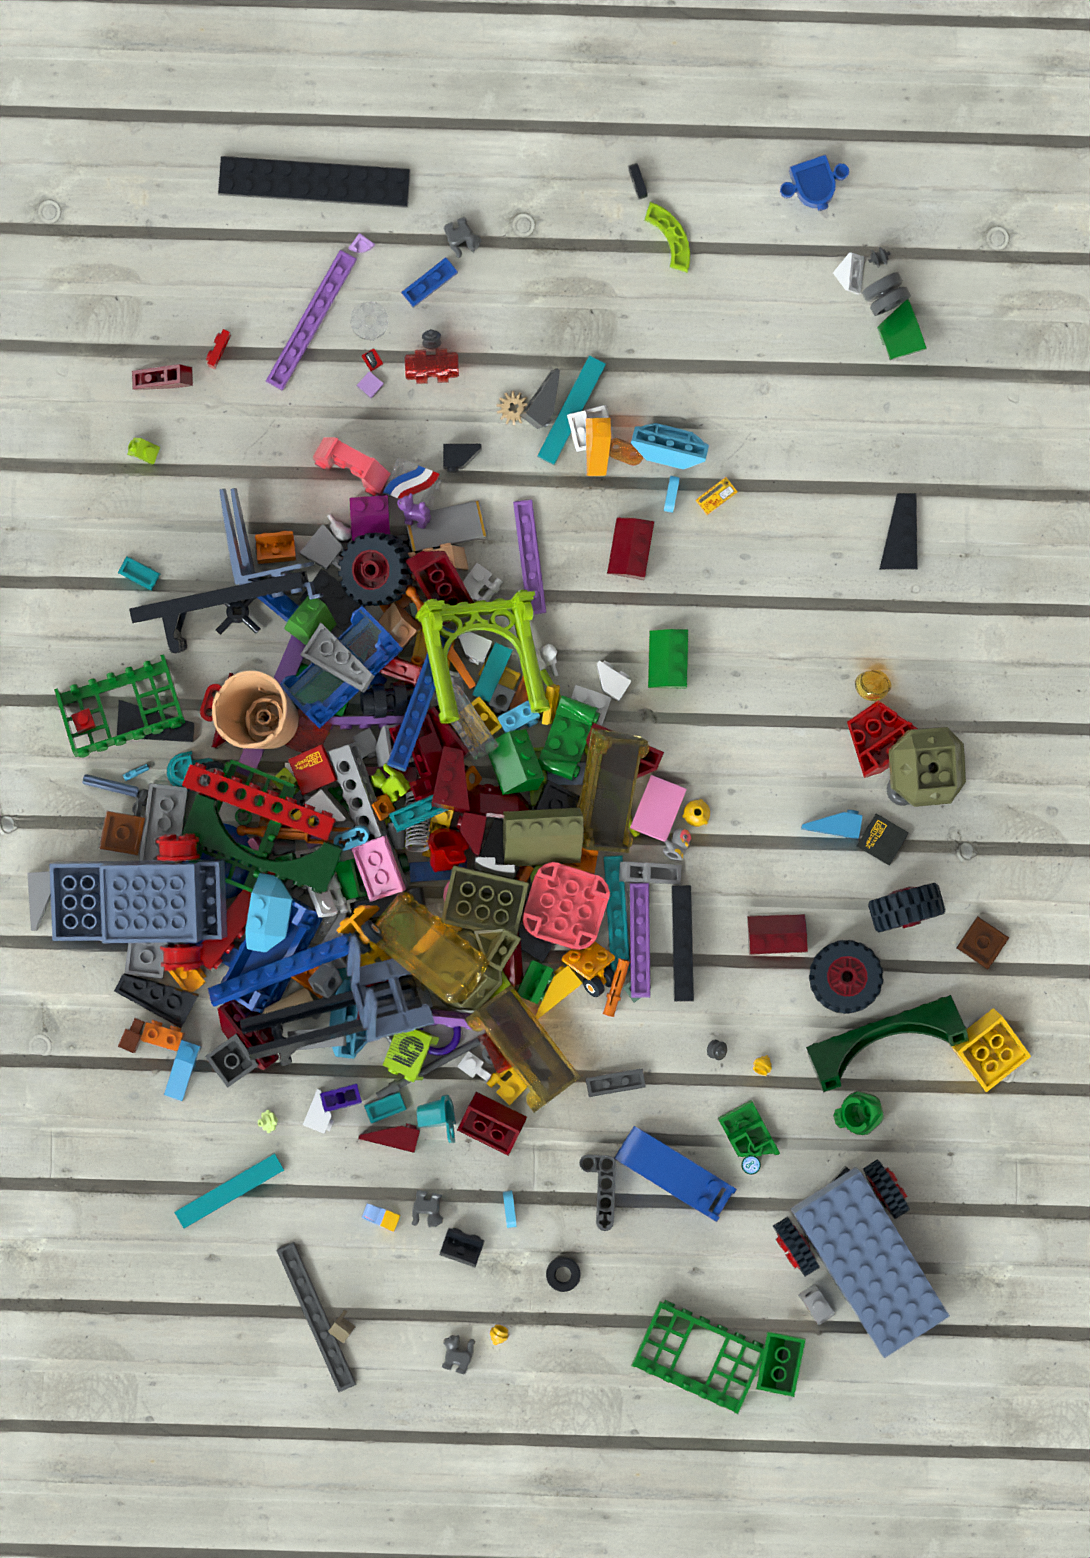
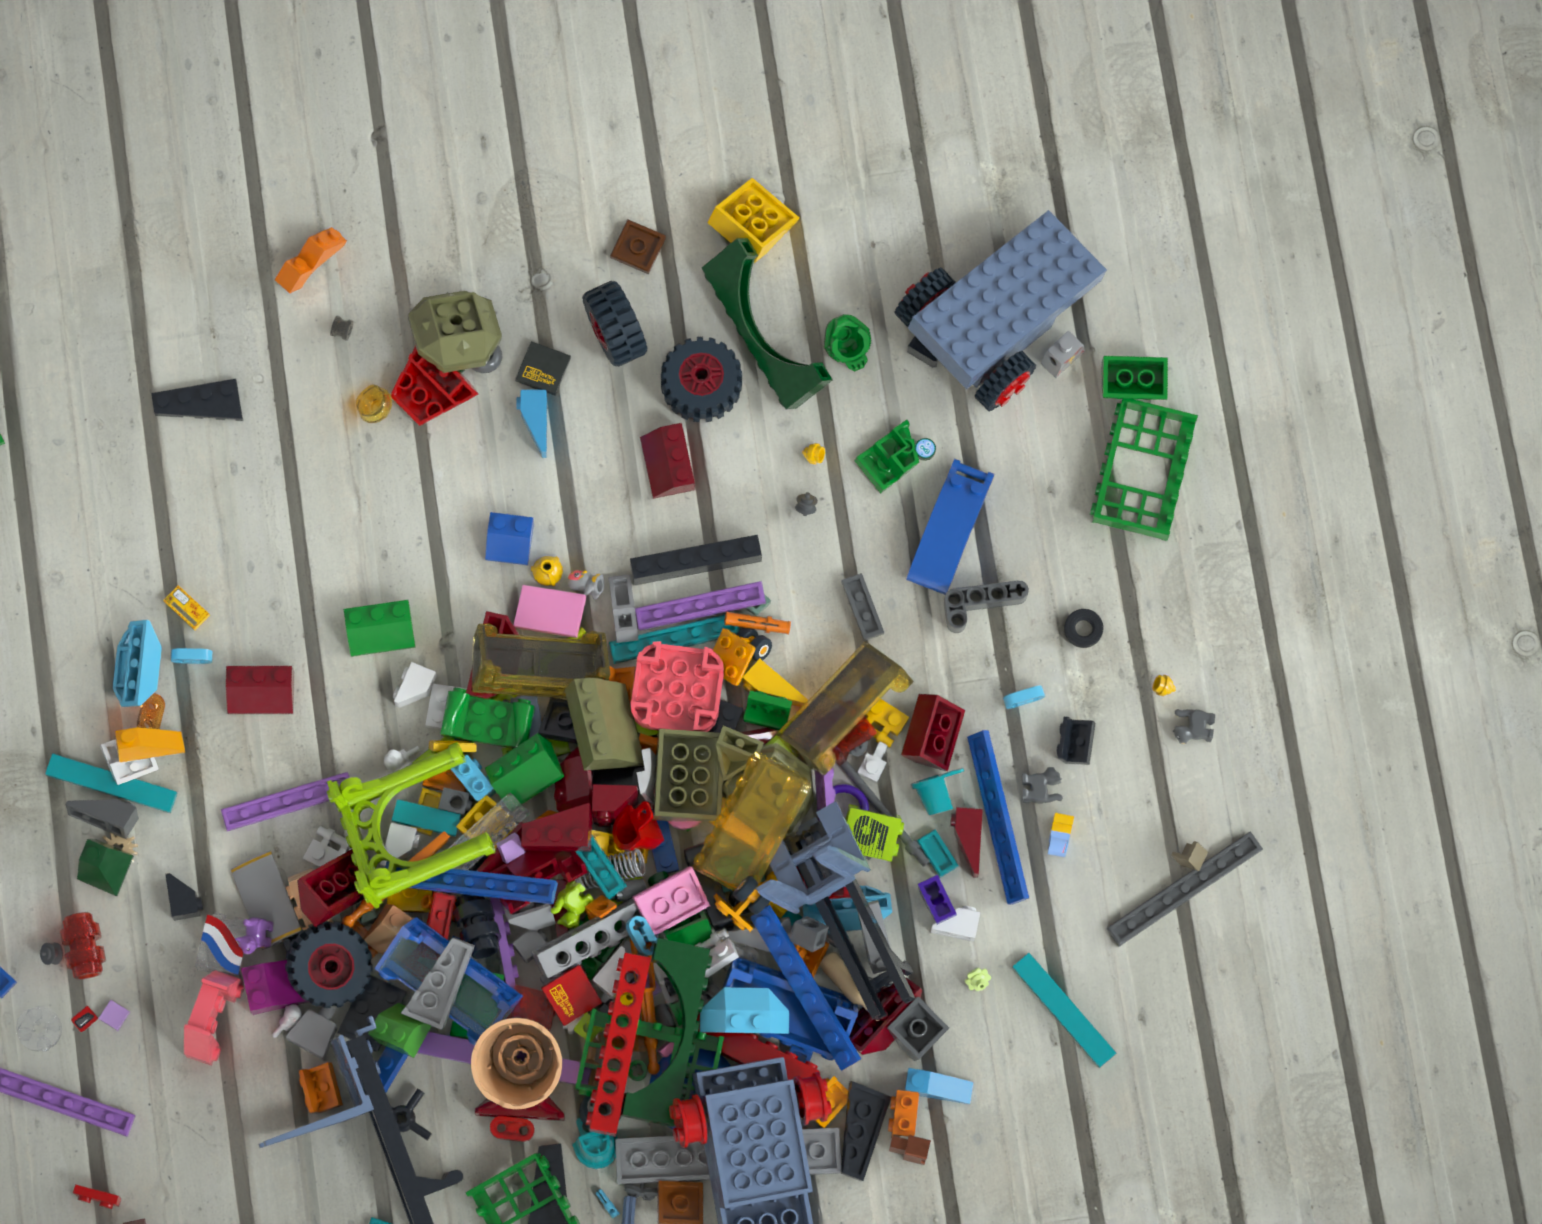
camera: 100 degrees left, 10 degrees down
(407, 1166) = (998, 817): none -> blue plate
(447, 737) = (510, 848): none -> lavender tile
(499, 393) = (103, 866): none -> dark green slope
(729, 784) = (509, 538): none -> blue slope
(948, 668) = (341, 328): none -> clear smoke wheel
(1018, 651) = (312, 255): none -> orange arch

